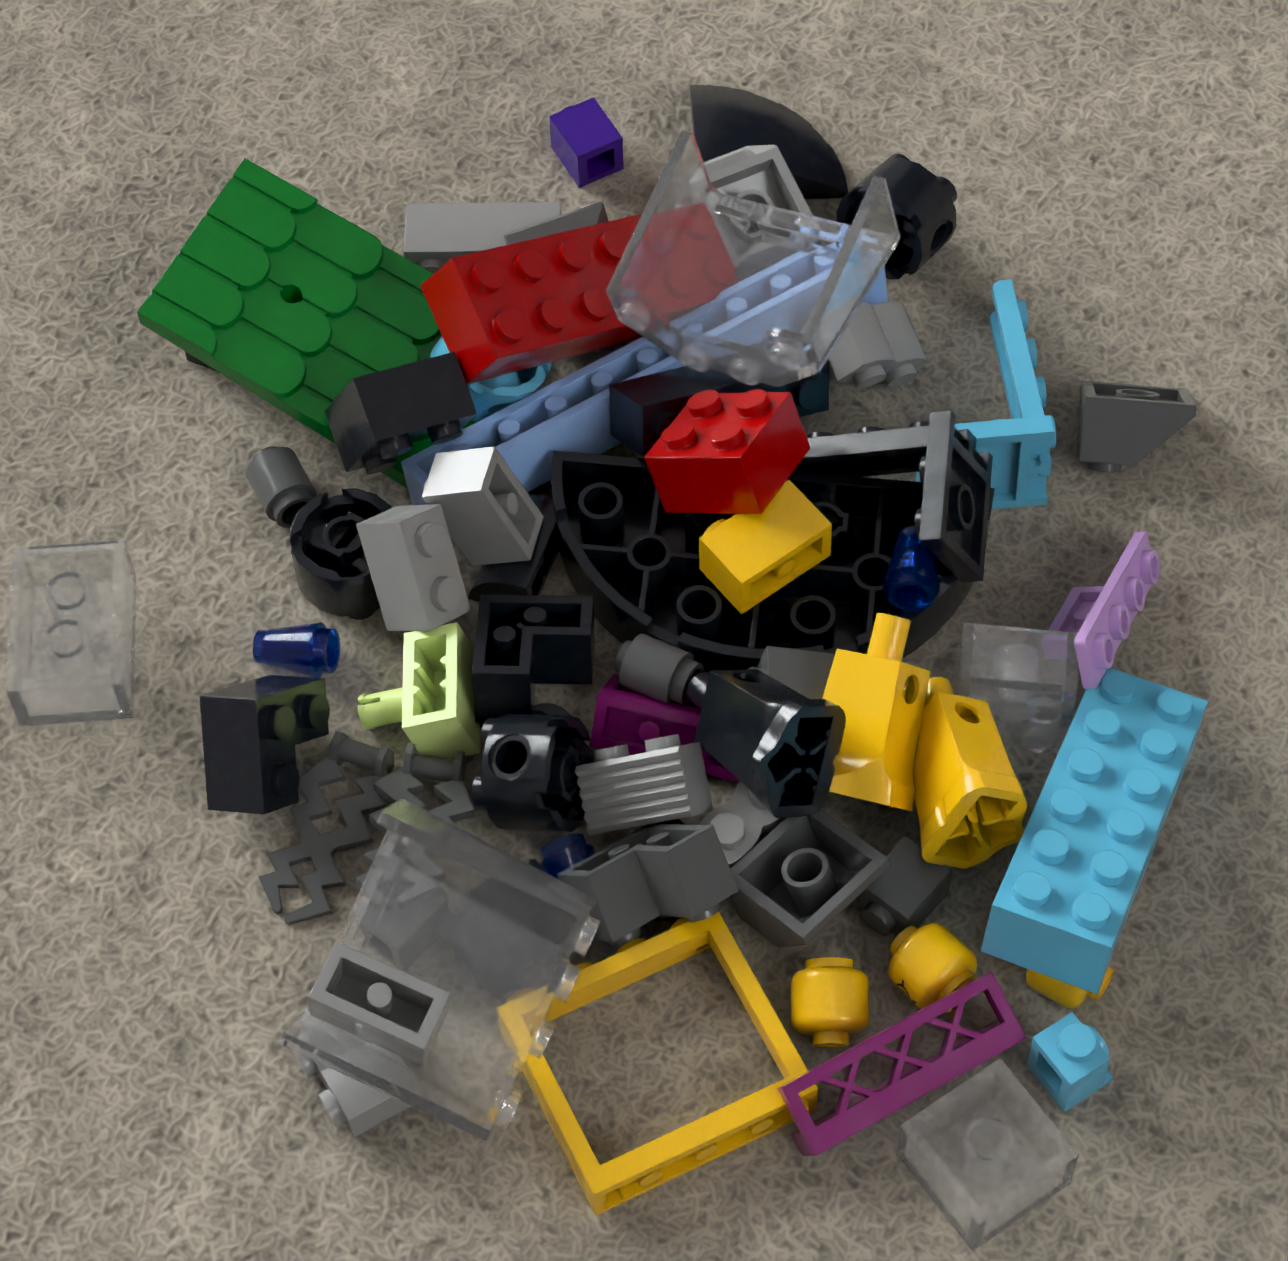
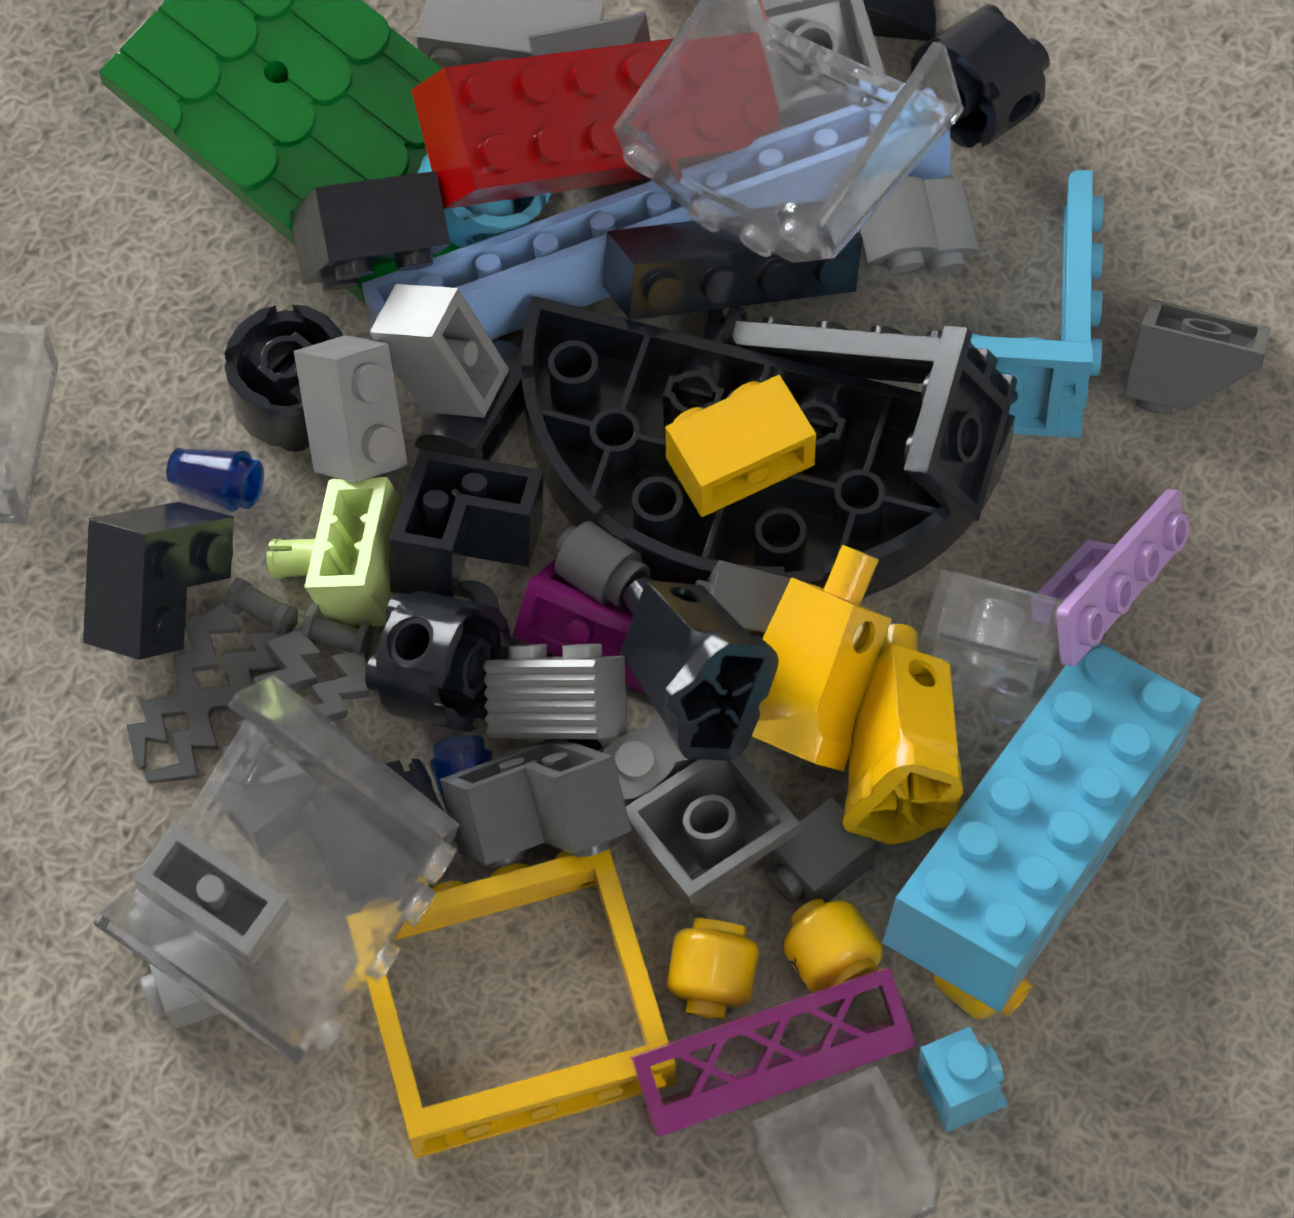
camera: 10 degrees right, 5 degrees up
(280, 483) = (232, 283): dark grey brick -> none
(728, 452) = (717, 333): red brick -> none
(911, 574) = (895, 505): clear blue cone -> none

